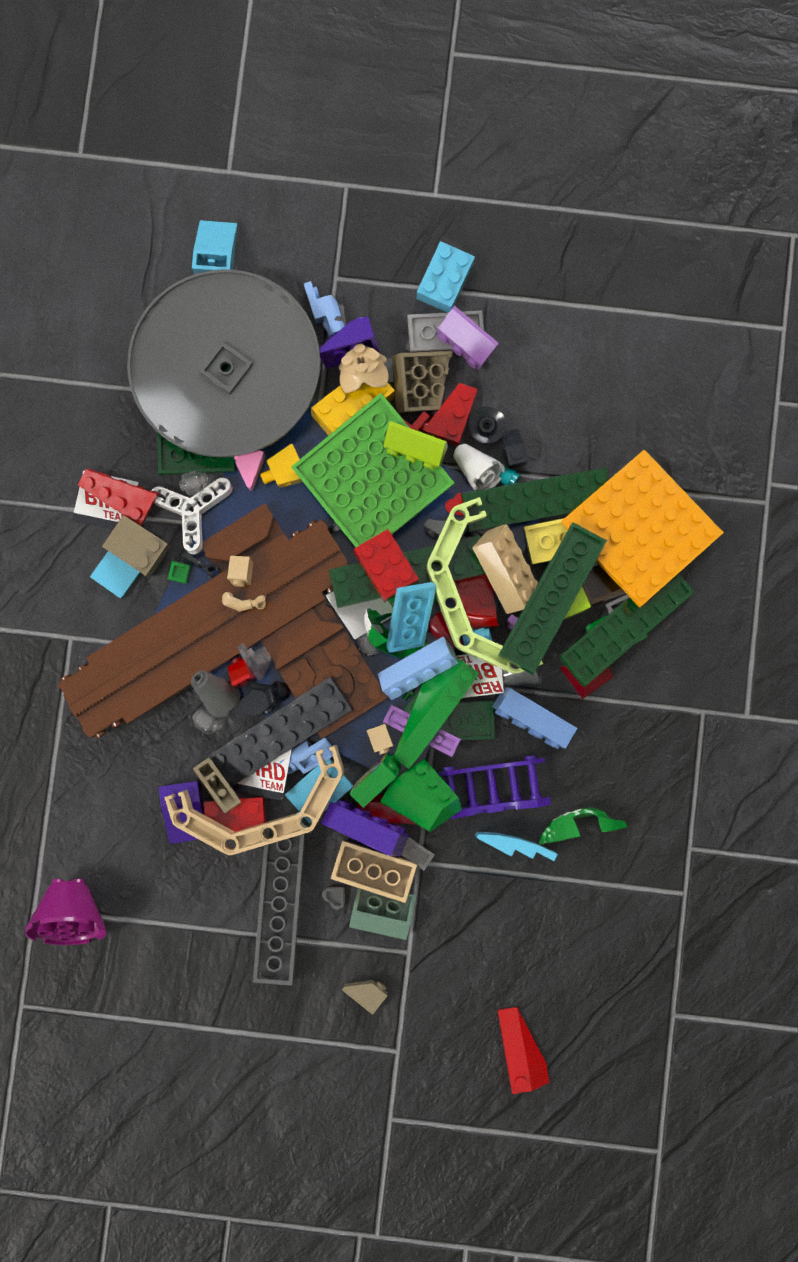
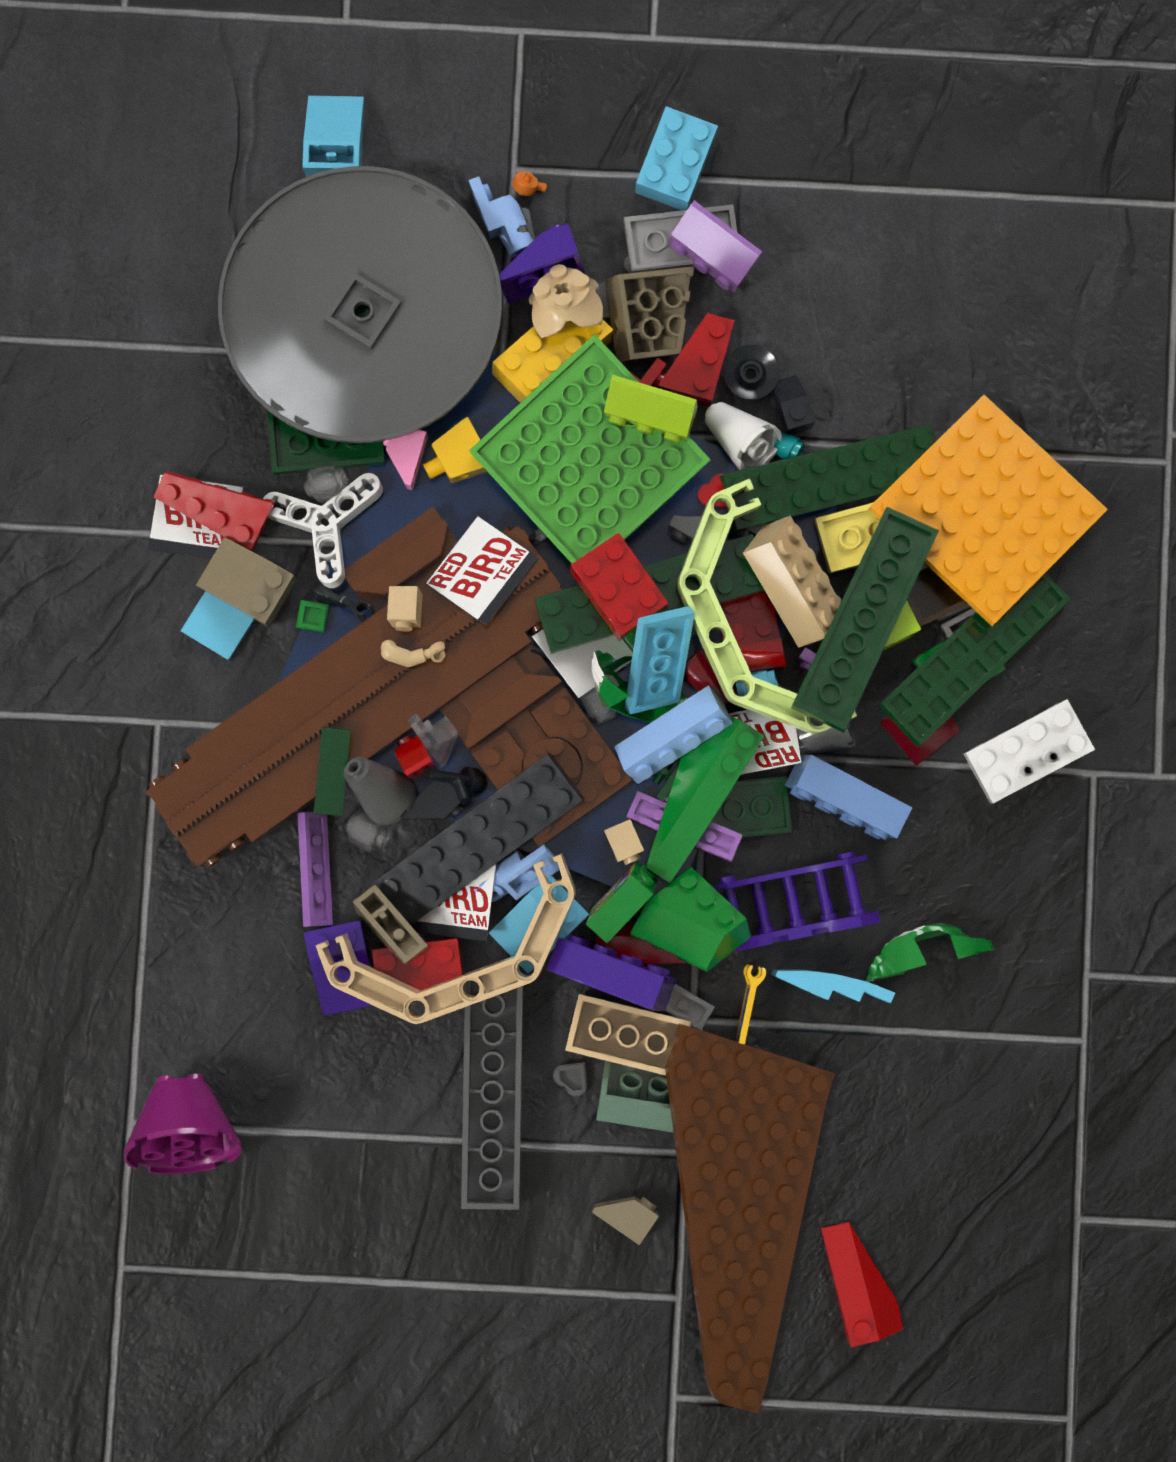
camera: 10 degrees left, 0 degrees up
(169, 744) = (315, 869): none -> medium lavender plate
(184, 672) = (330, 773): none -> dark green tile
(294, 548) = (482, 570): none -> sticker
(343, 288) = (526, 184): none -> orange piece
(447, 965) = (744, 1166): none -> reddish brown wing
(461, 840) = (752, 983): none -> yellow flag
(659, 694) = (1029, 751): none -> white piece

